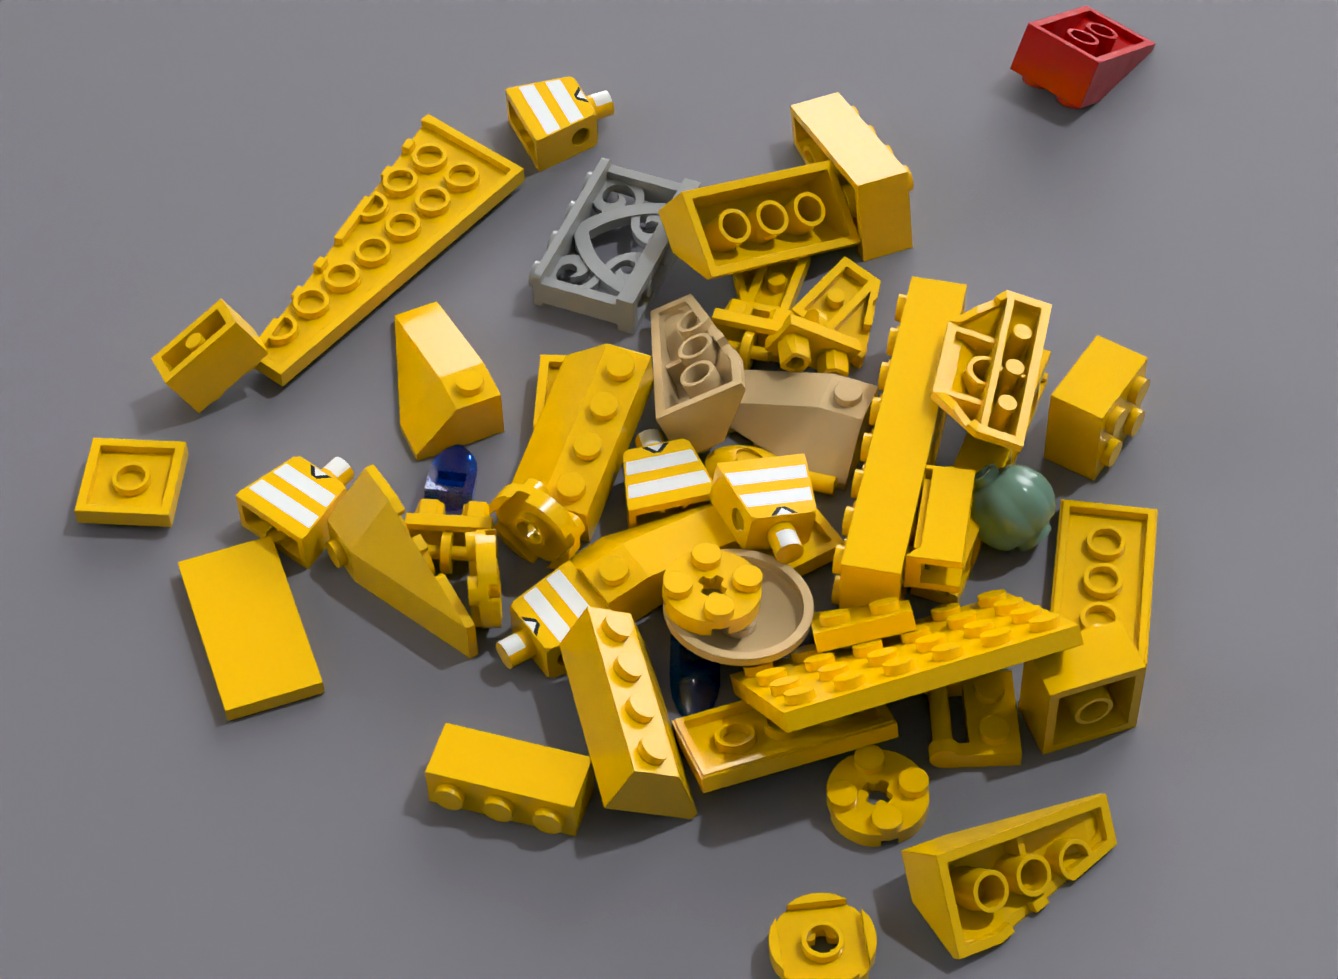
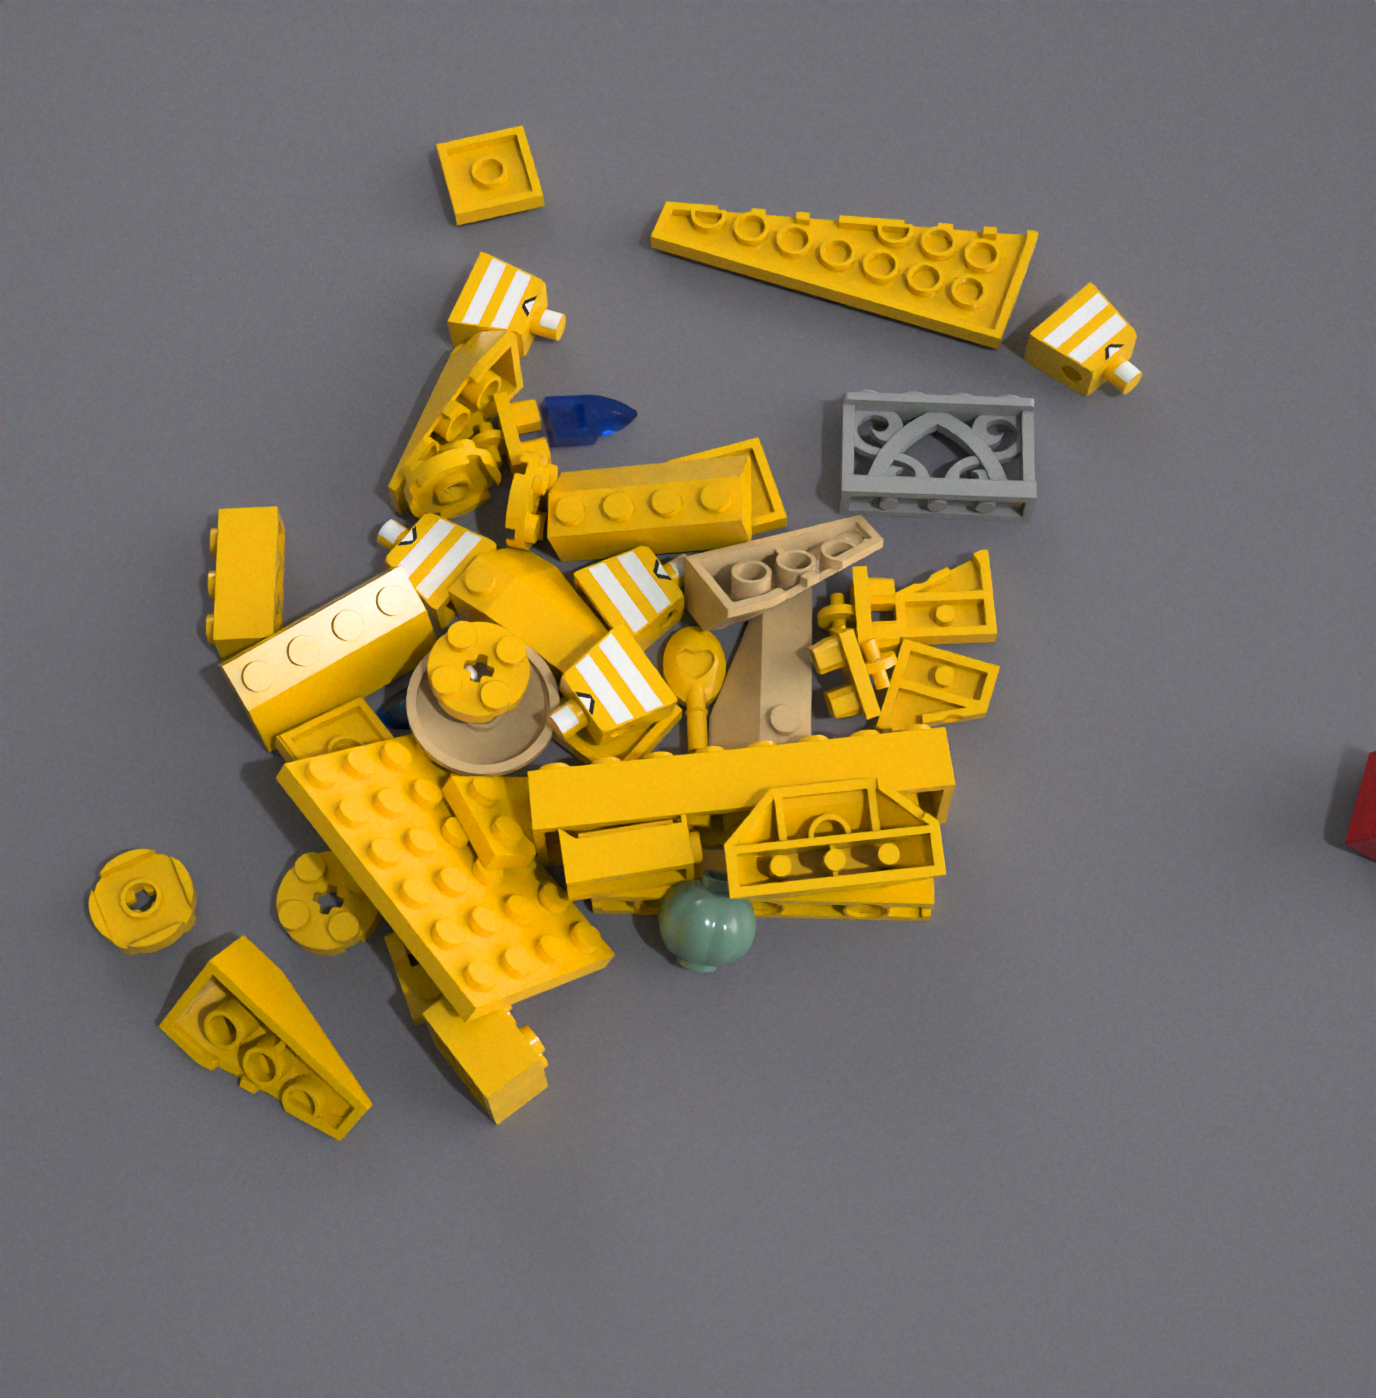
camera: 70 degrees right, 15 degrees up
(210, 356) = (635, 170): yellow brick -> none
(250, 628) = (364, 326): yellow tile -> none
(442, 384) = (698, 374): yellow wedge -> none
(760, 220) = (998, 572): yellow slope -> none
(867, 170) = (1128, 638): yellow wedge -> none
(1096, 408) = (869, 970): yellow brick -> none
(1105, 567) = (662, 1045): yellow tile -> none

